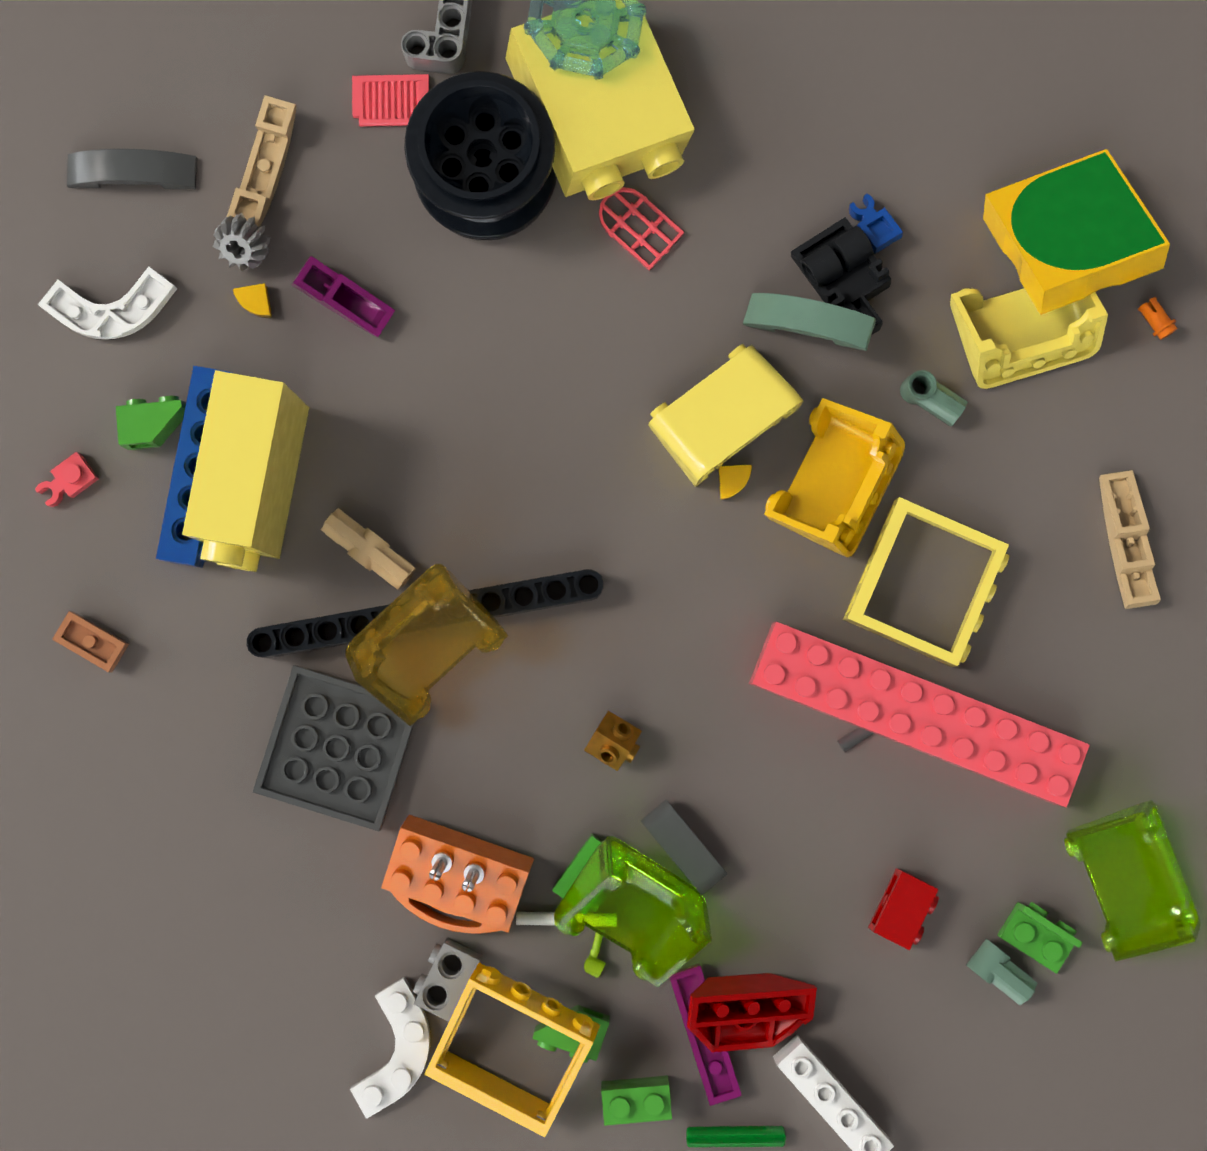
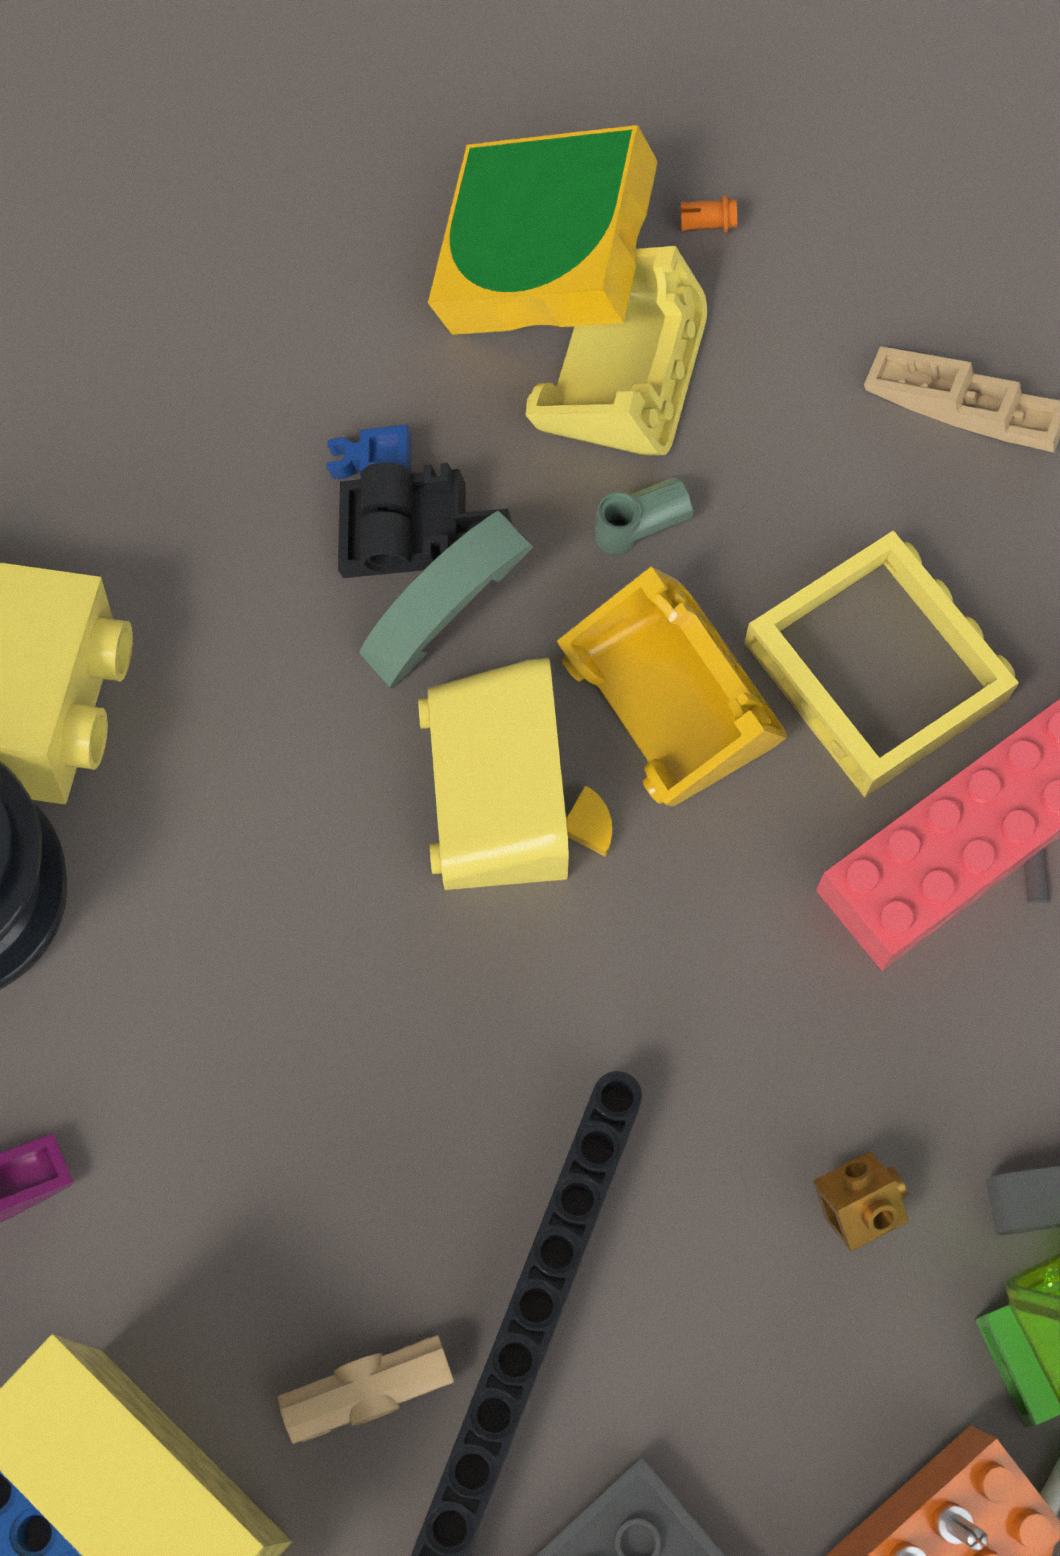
camera: 60 degrees left, 15 degrees down
(420, 642) = (553, 1389): clear yellow windscreen -> none
(640, 238) = (188, 747): coral window -> none

